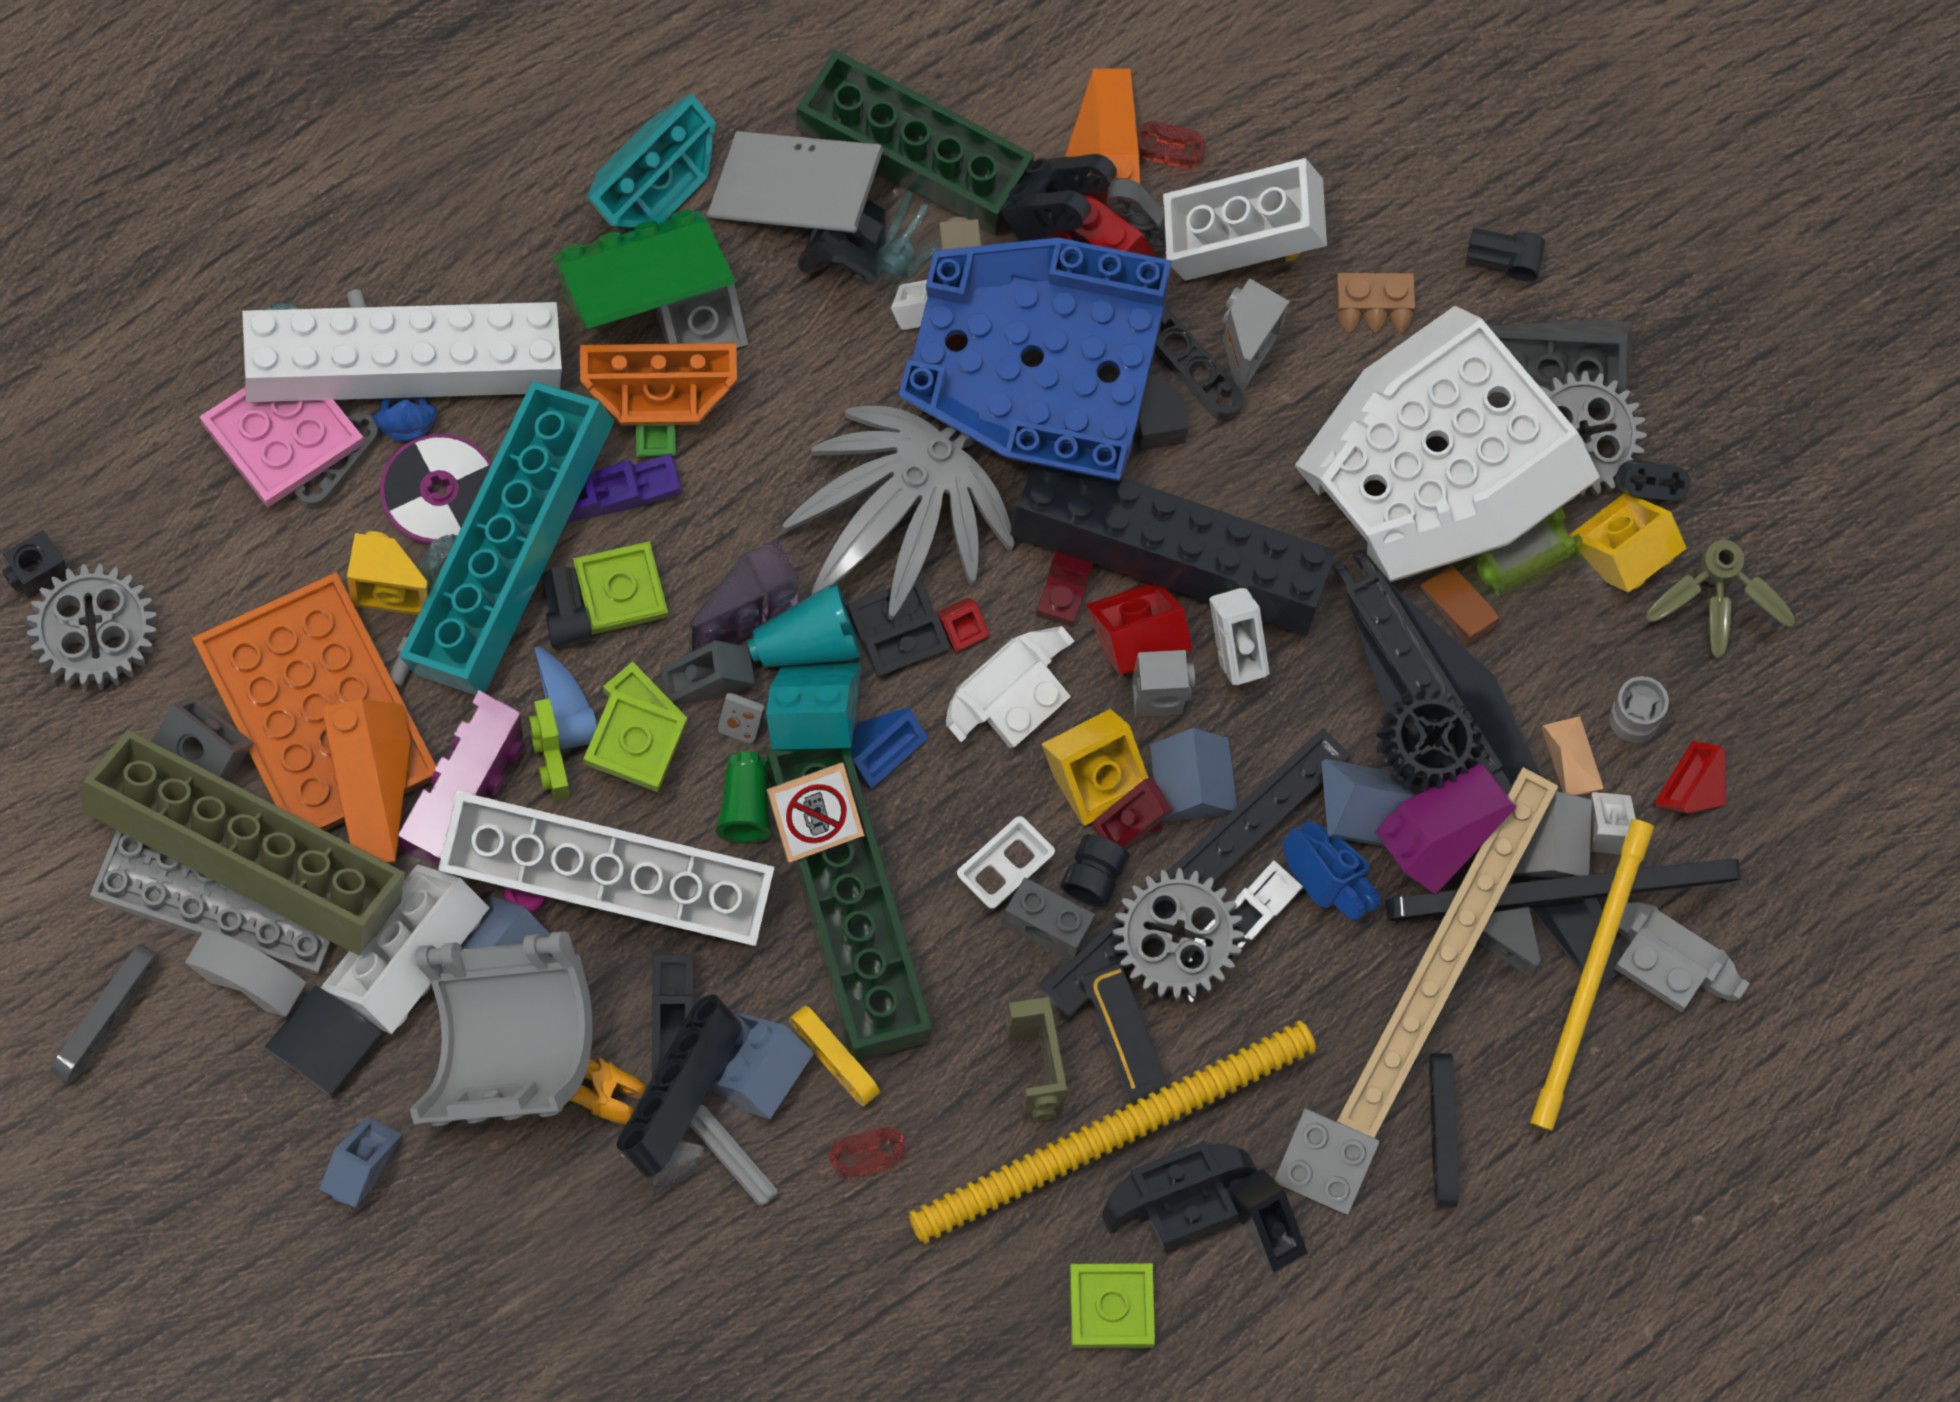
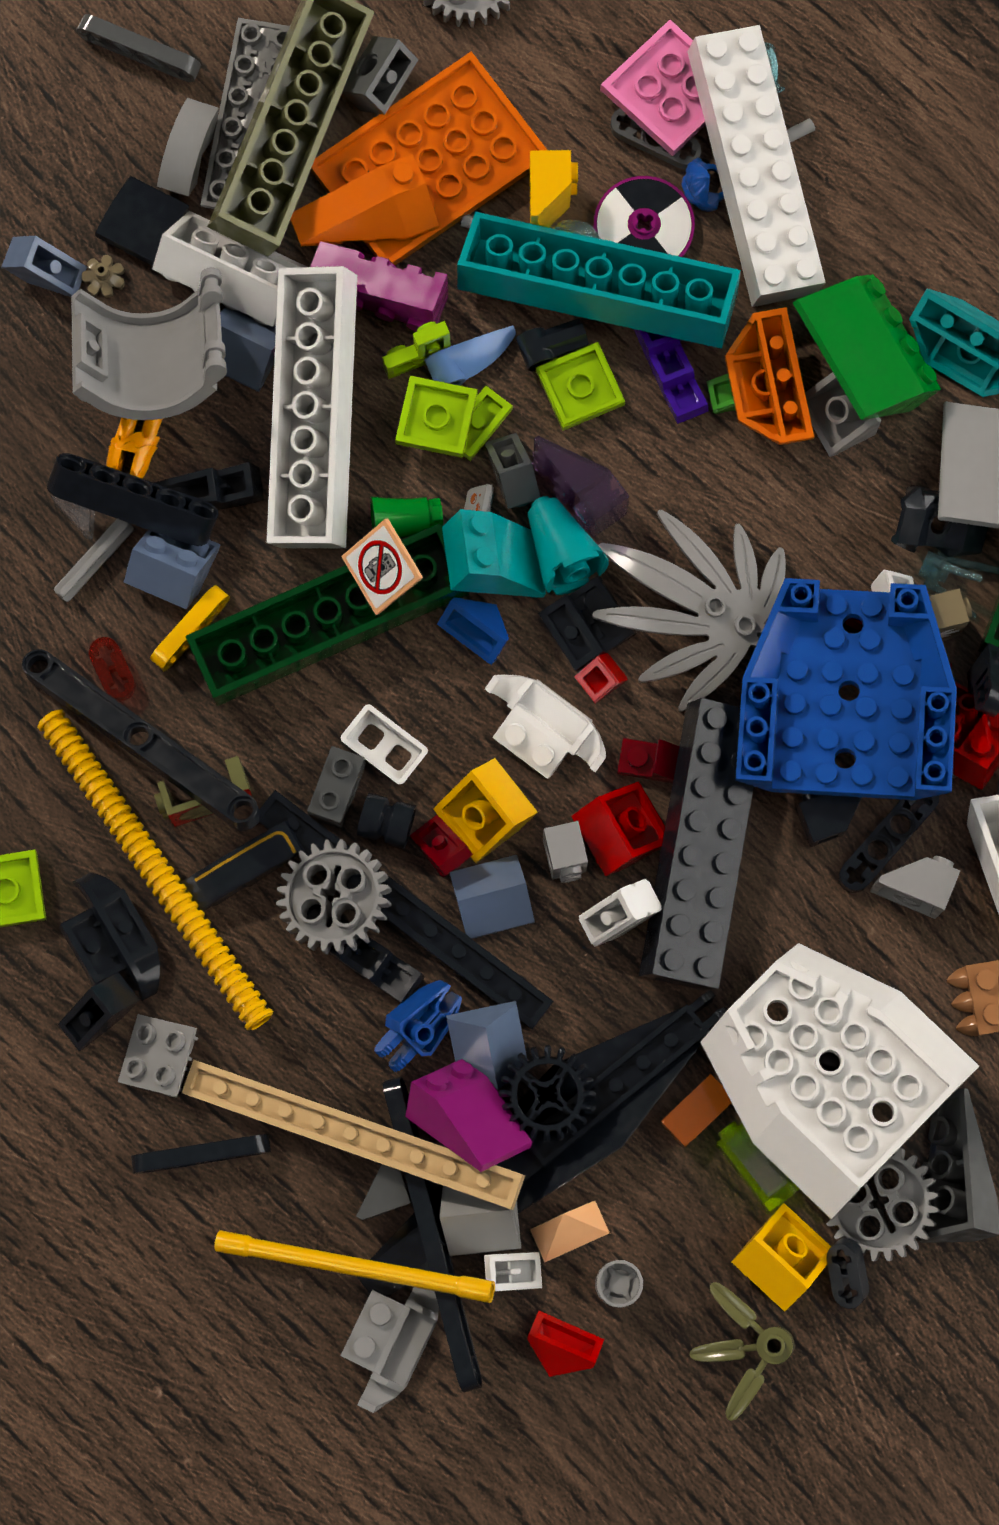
camera: 90 degrees right, 10 degrees up
(383, 1098) = (103, 276): none -> dark tan plant
(945, 1137) = (157, 752): none -> black beam

